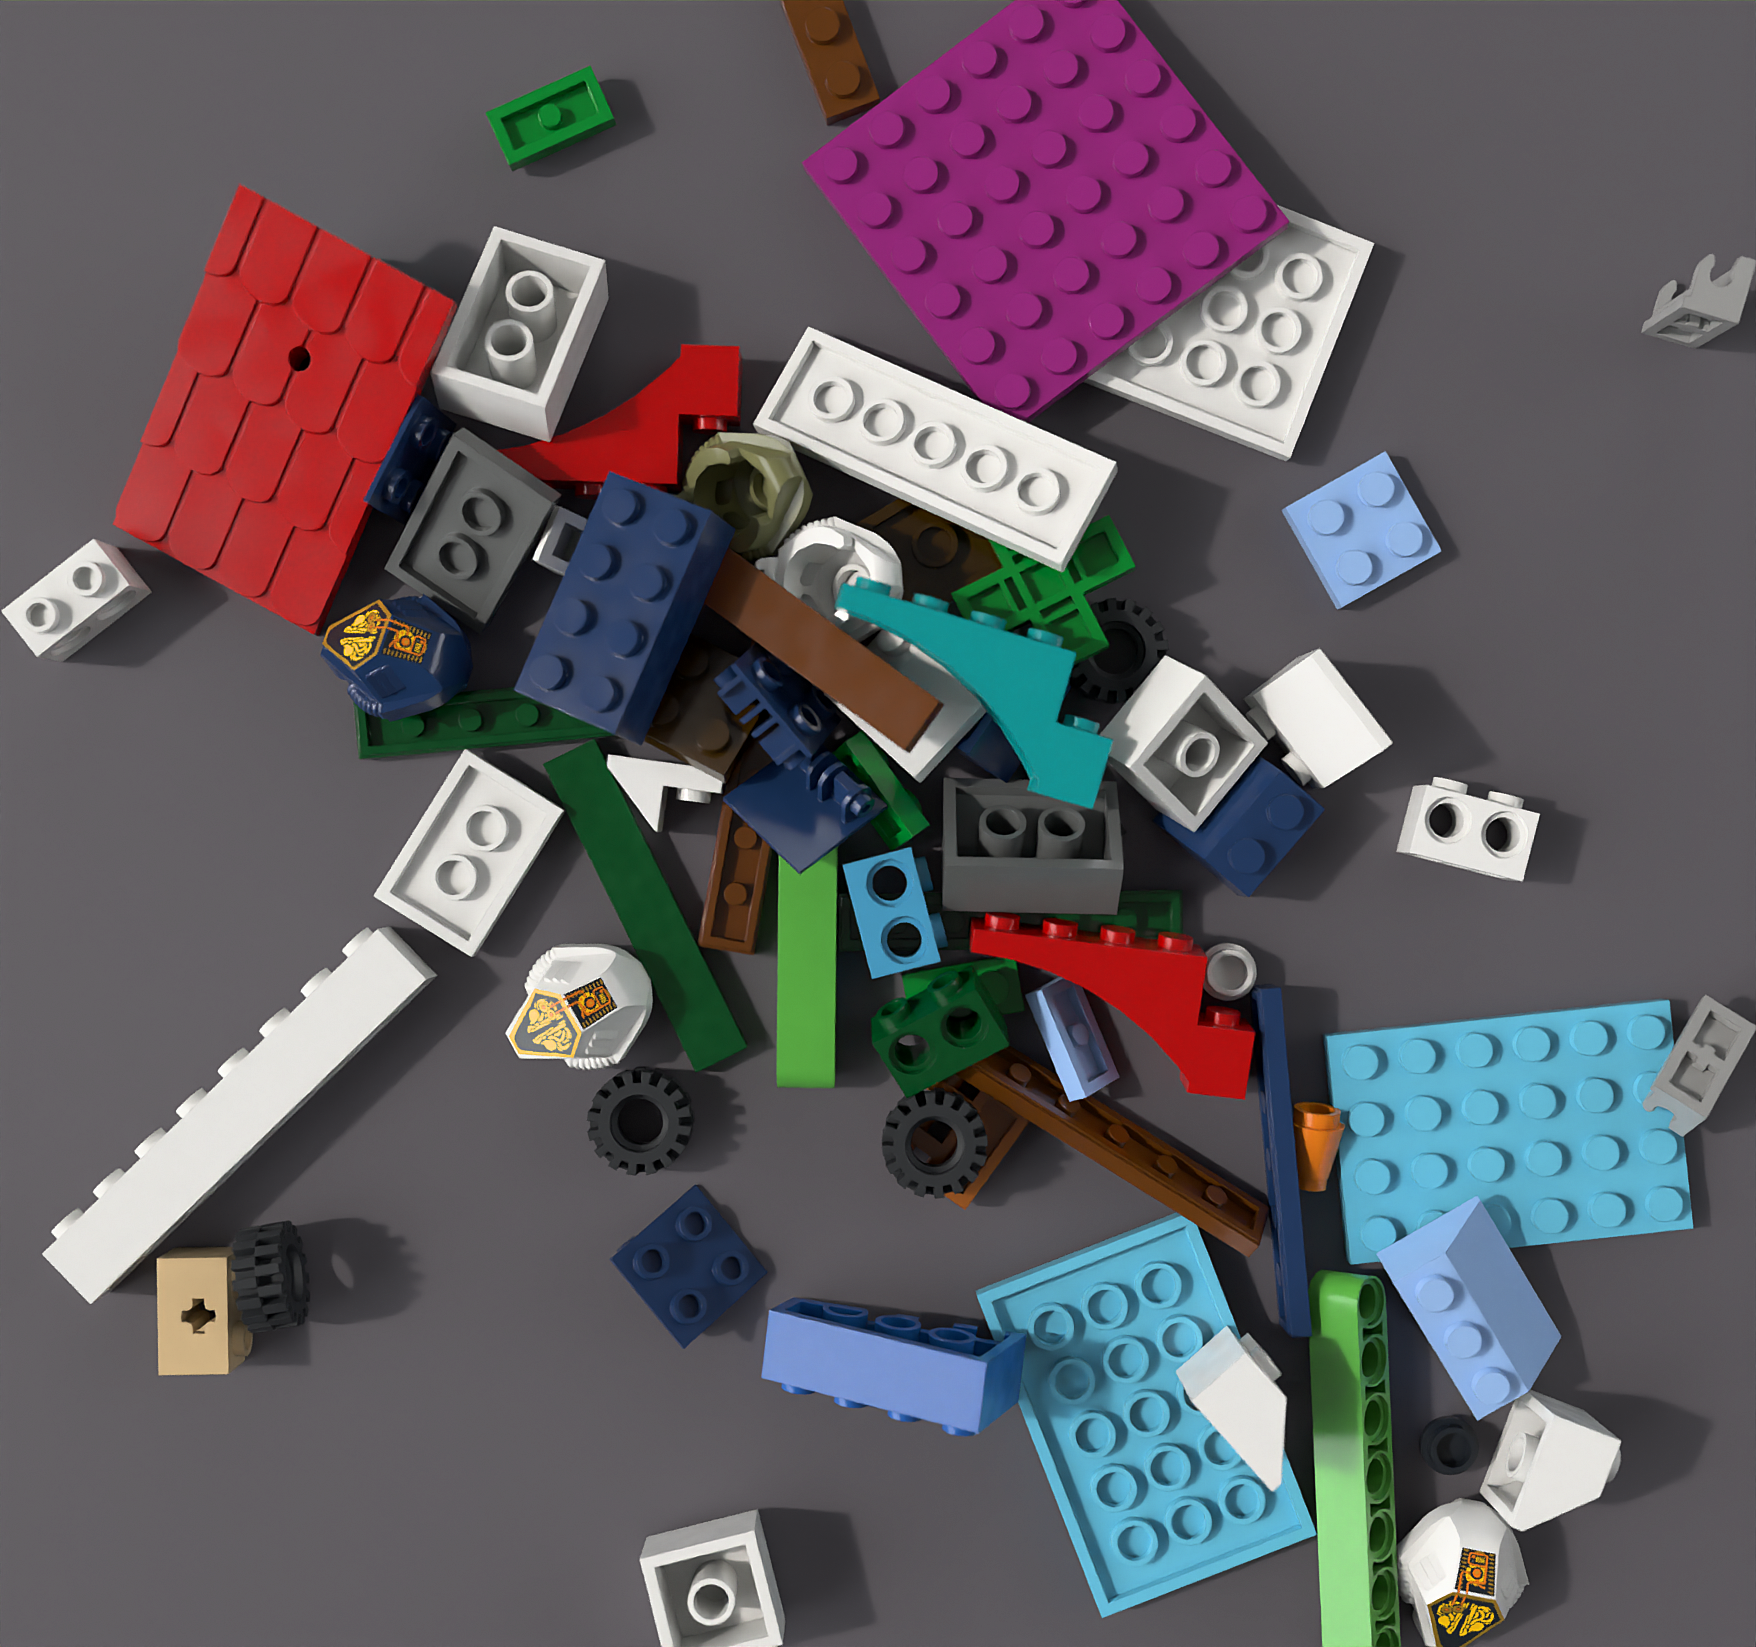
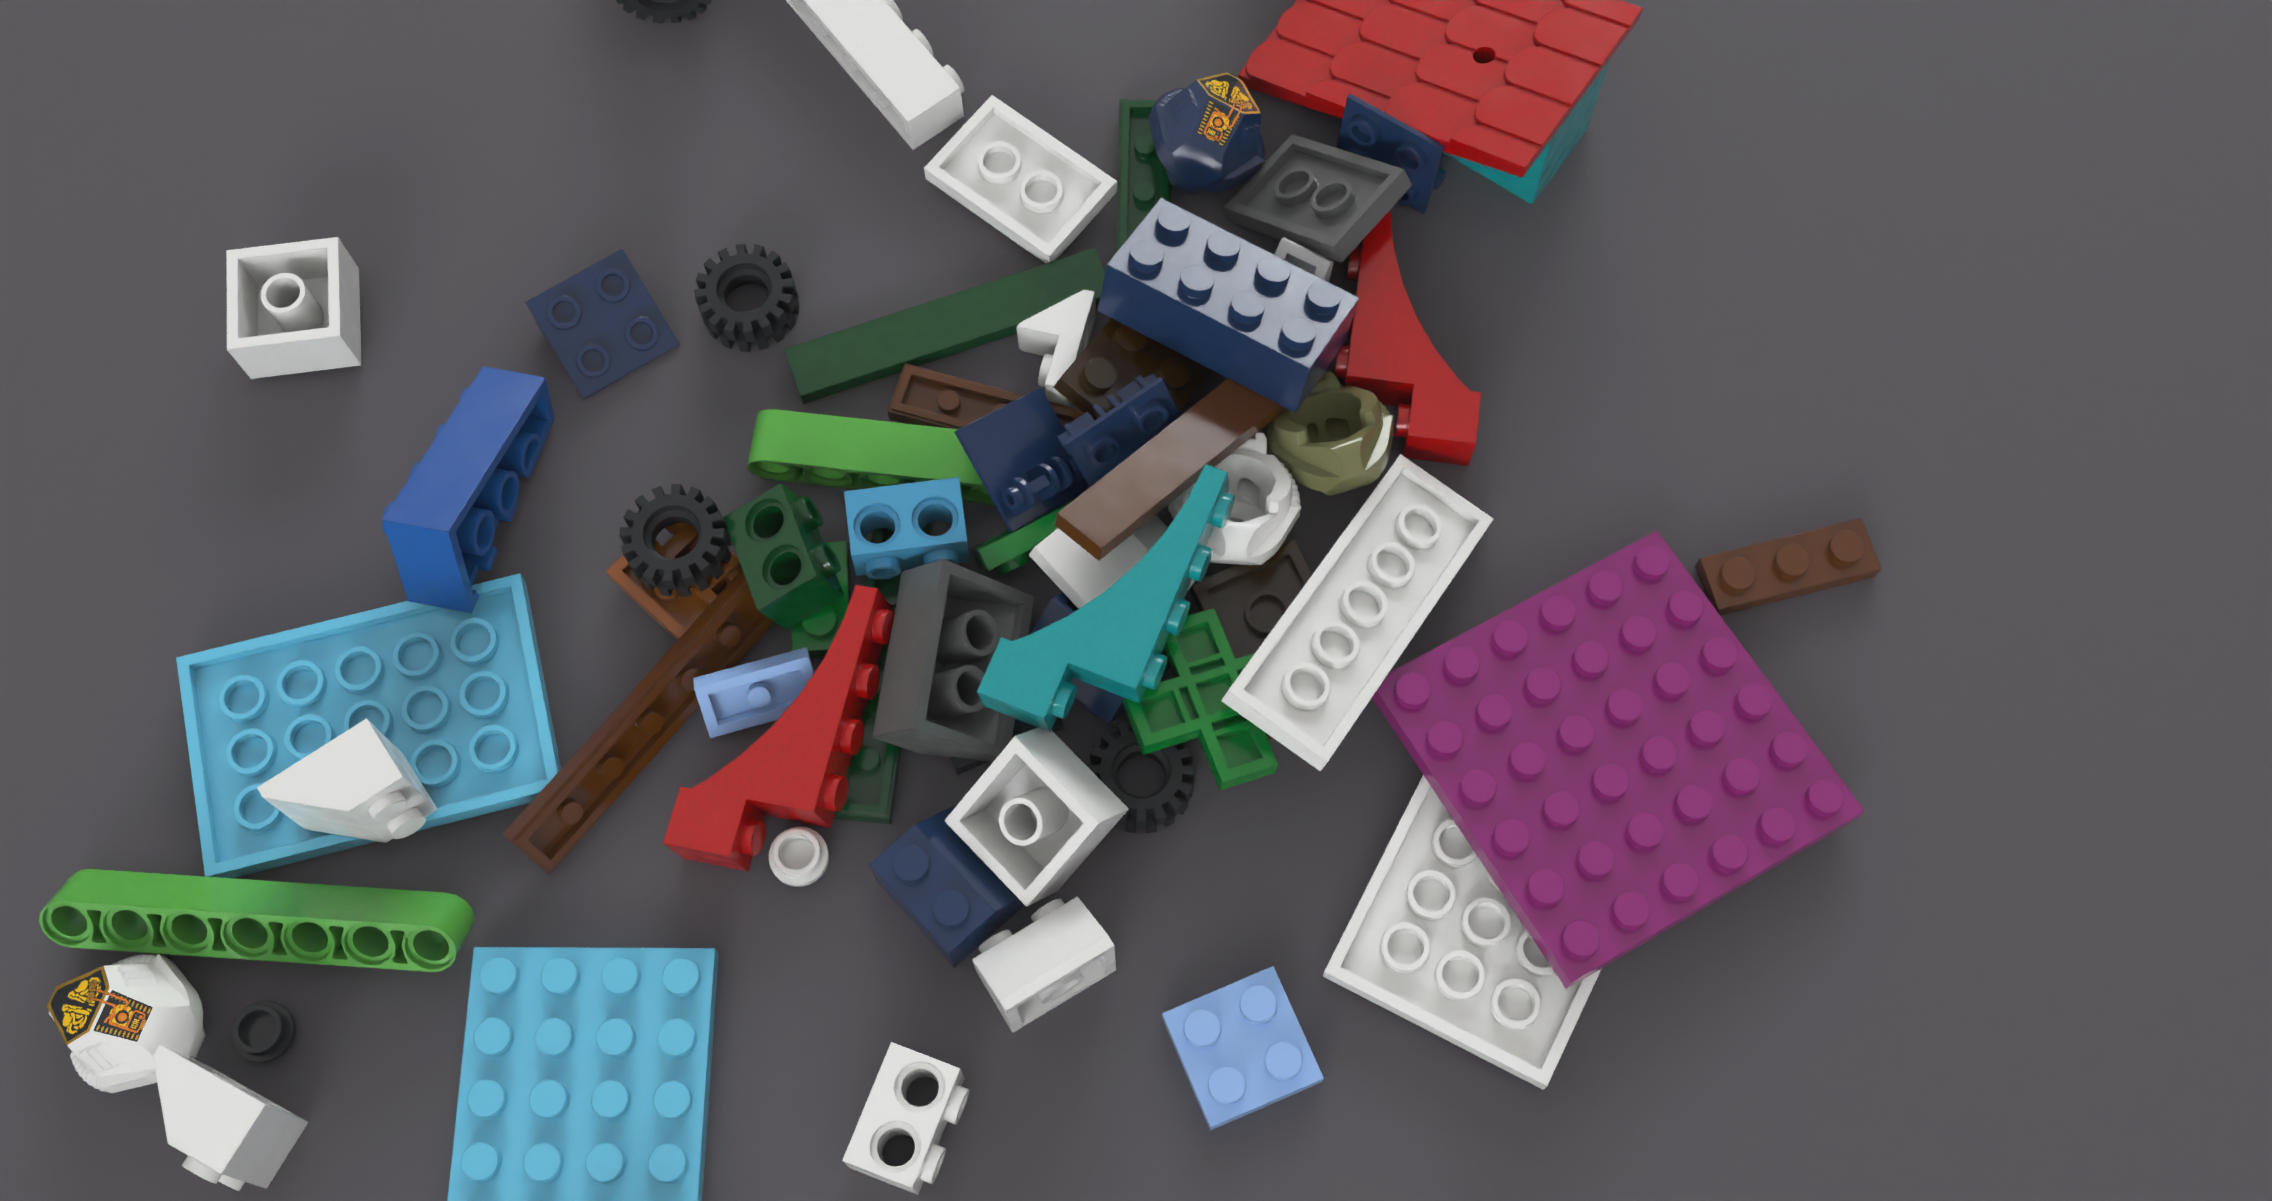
camera: 95 degrees right, 20 degrees down
(521, 334) = (1499, 253): white brick -> none
(551, 118) = (1707, 313): green plate -> none
(582, 1006) = (862, 256): white helmet -> none
(1280, 1160) = (598, 883): dark blue tile -> none
(1316, 1142) = (606, 921): orange cone -> none
(1473, 1305) = (400, 1058): light blue slope -> none

